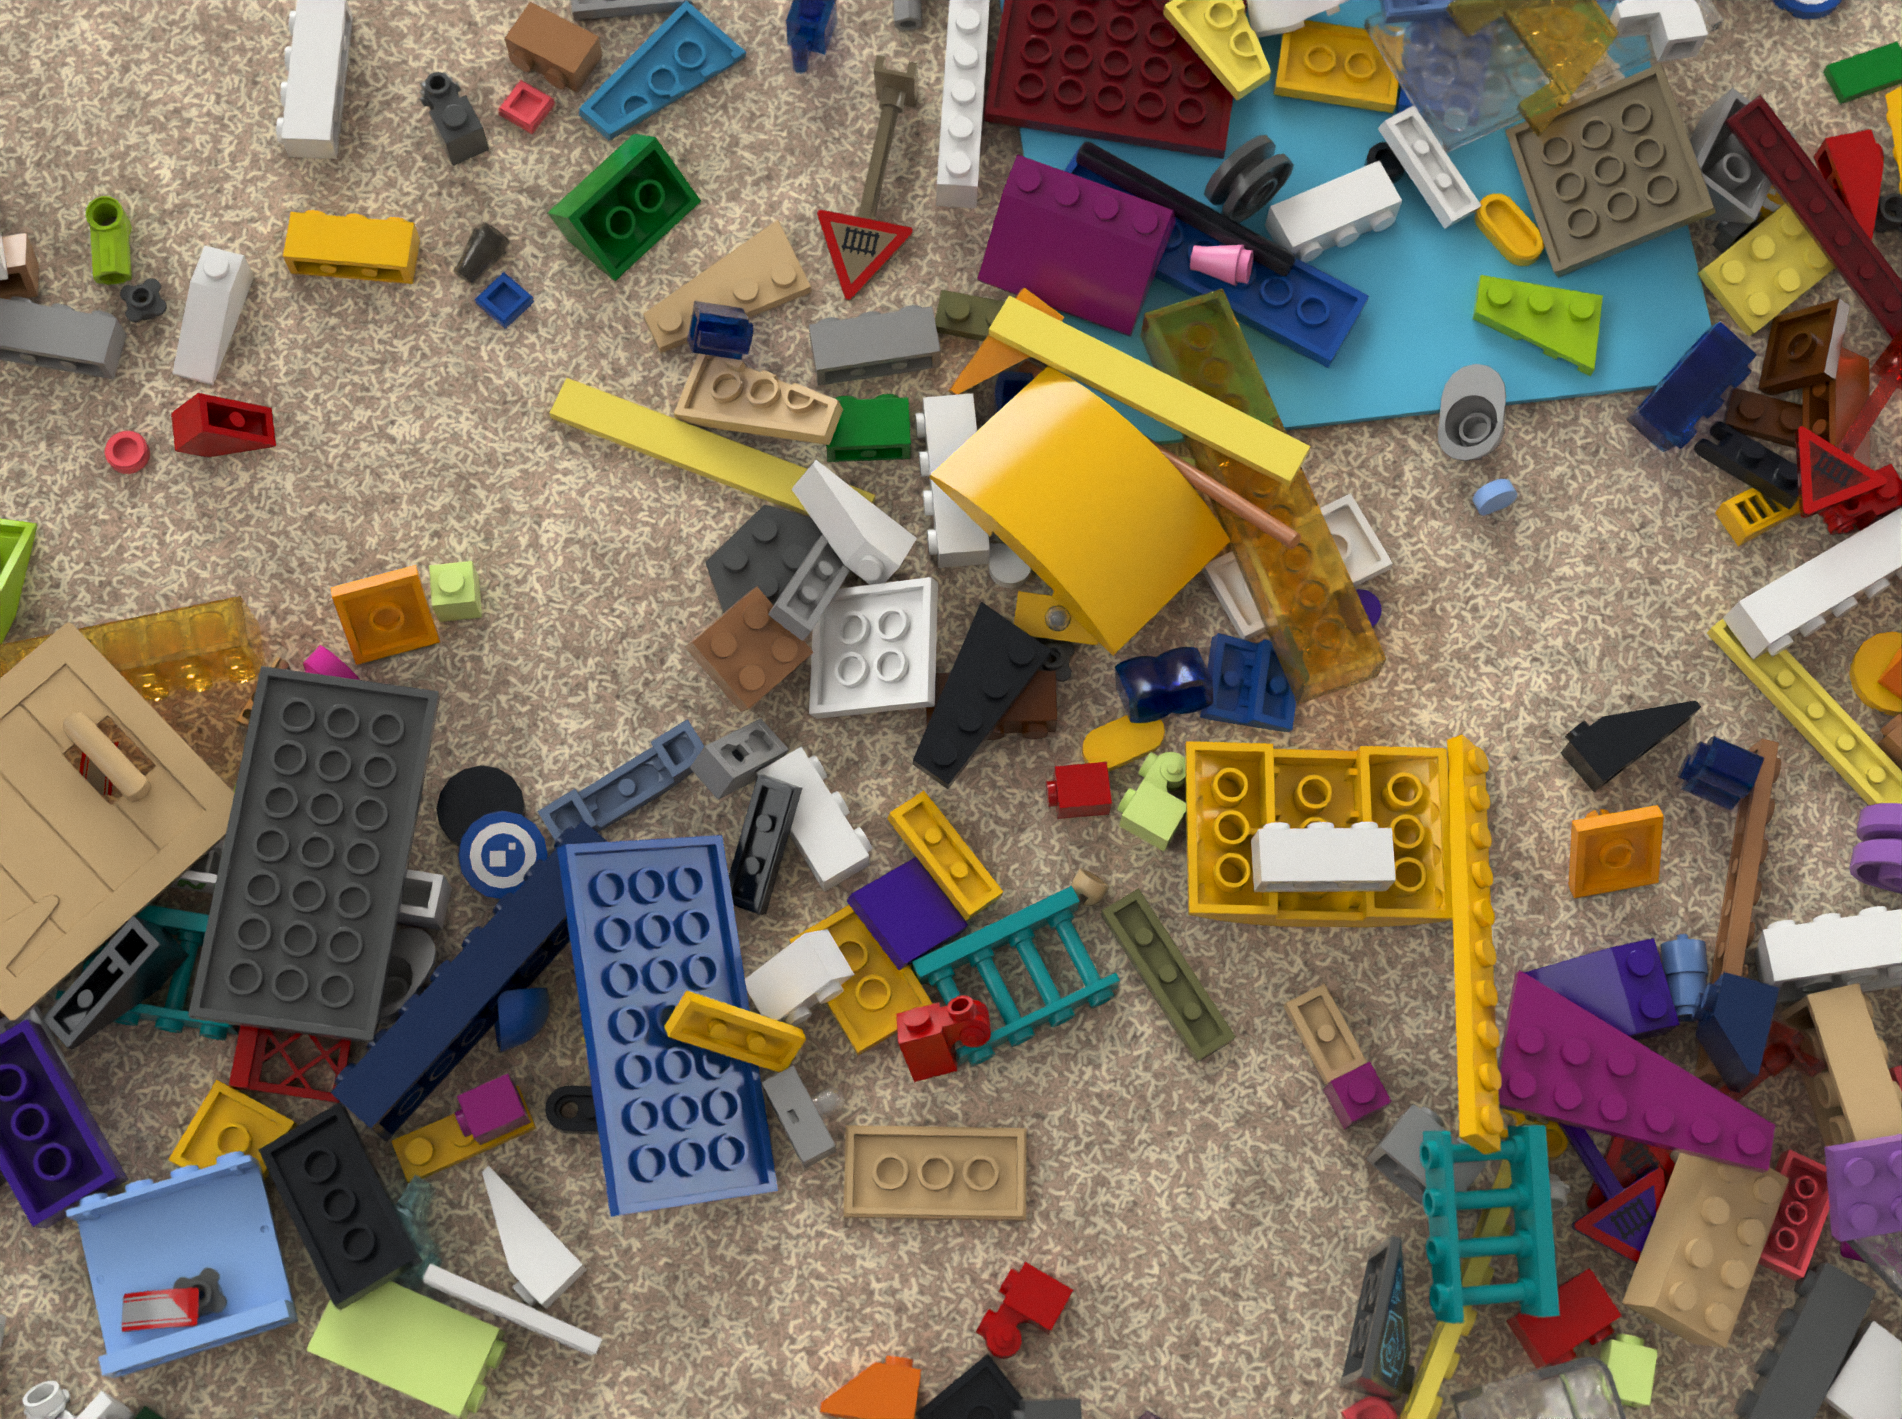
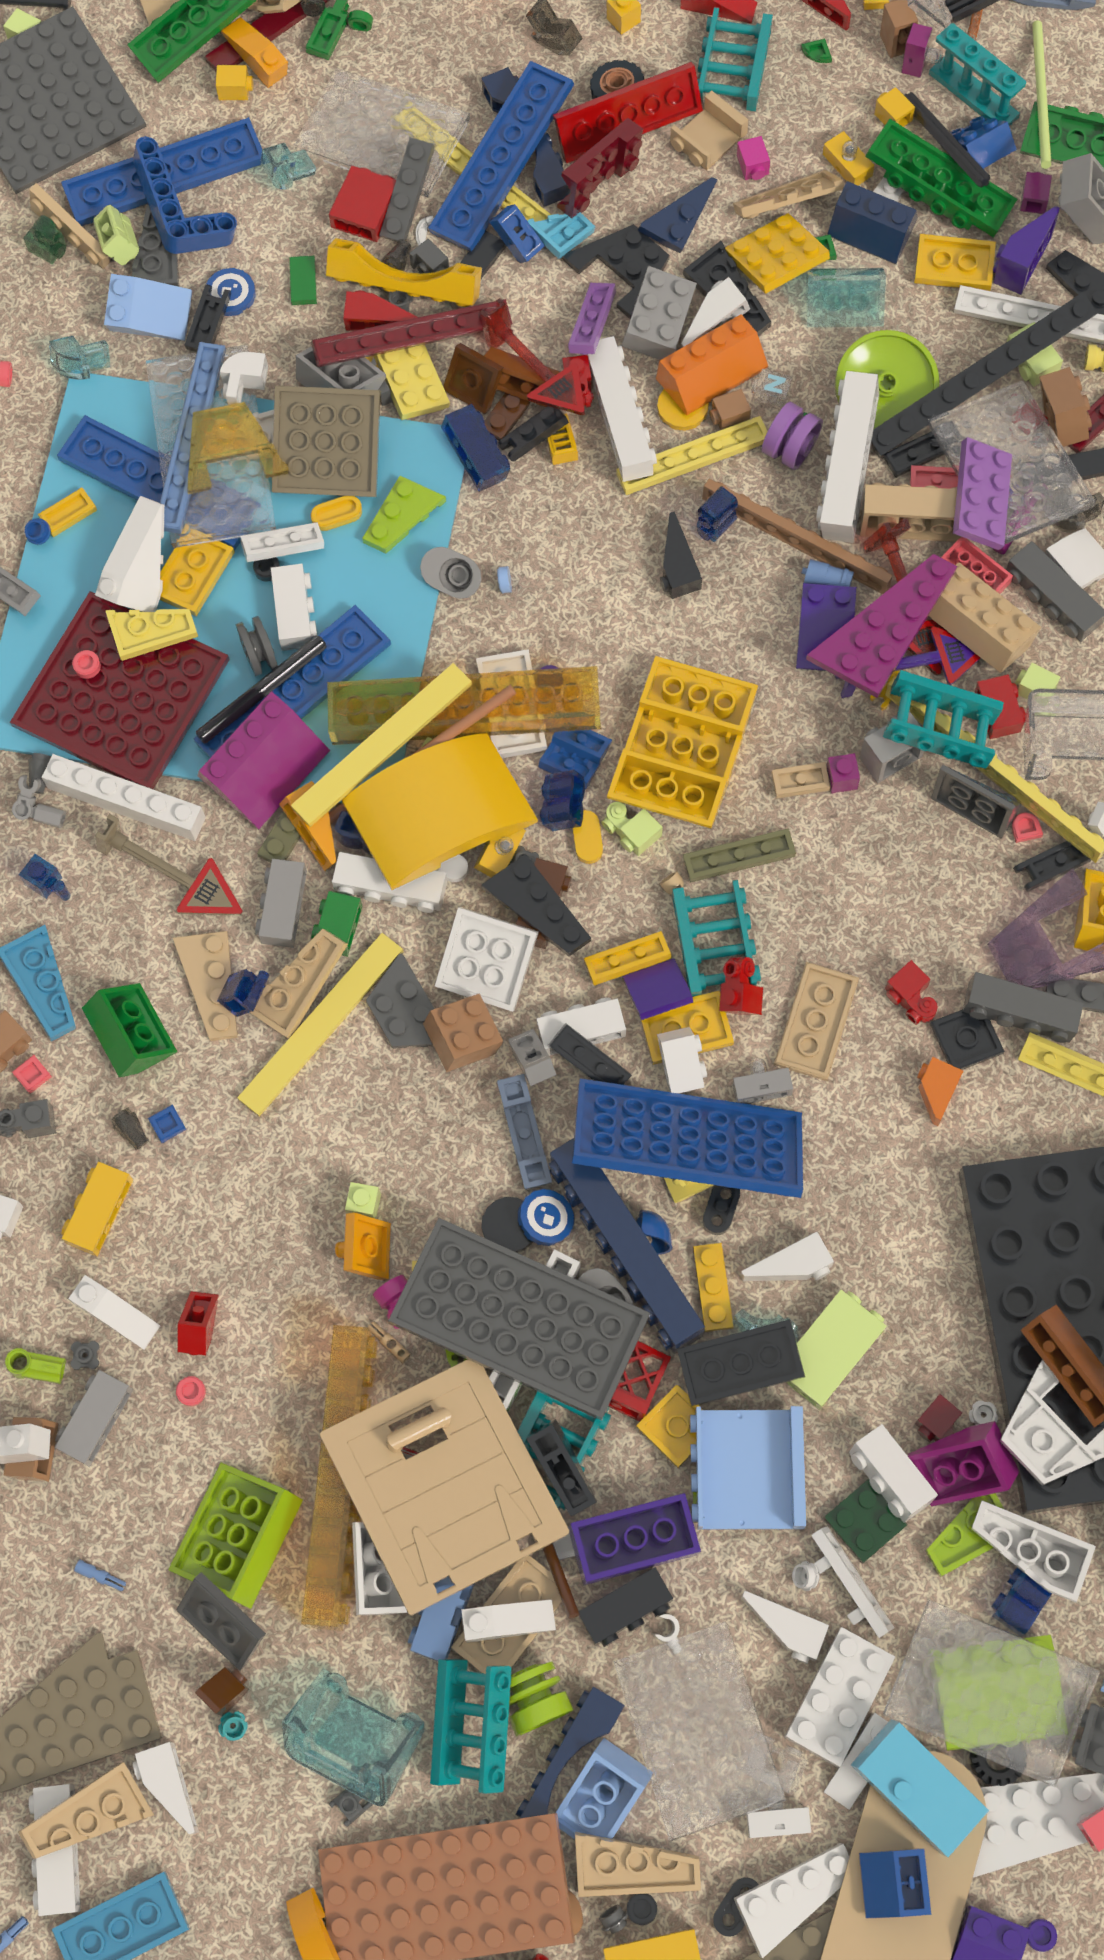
camera: 65 degrees left, 0 degrees up
(160, 1309) = (773, 1486): sticker -> none
(207, 1282) = (770, 1468): dark grey plate -> none
(491, 1110) = (708, 1259): magenta brick -> none
(511, 1310) = (831, 1281): white tile -> none
(734, 1032) = (706, 1101): yellow plate -> none
(810, 590) = (437, 980): light grey plate -> none
(854, 527) = (406, 946): white slope -> none
(1080, 790) = (612, 868): red brick -> none
(1224, 263) = (308, 676): bright pink cone -> none
(1322, 858) = (703, 741): white brick -> none
(1473, 948) = (784, 676): yellow plate -> none
(1615, 850) = (743, 587): light orange tile -> none
(1735, 1026) = (872, 555): dark blue slope -> none

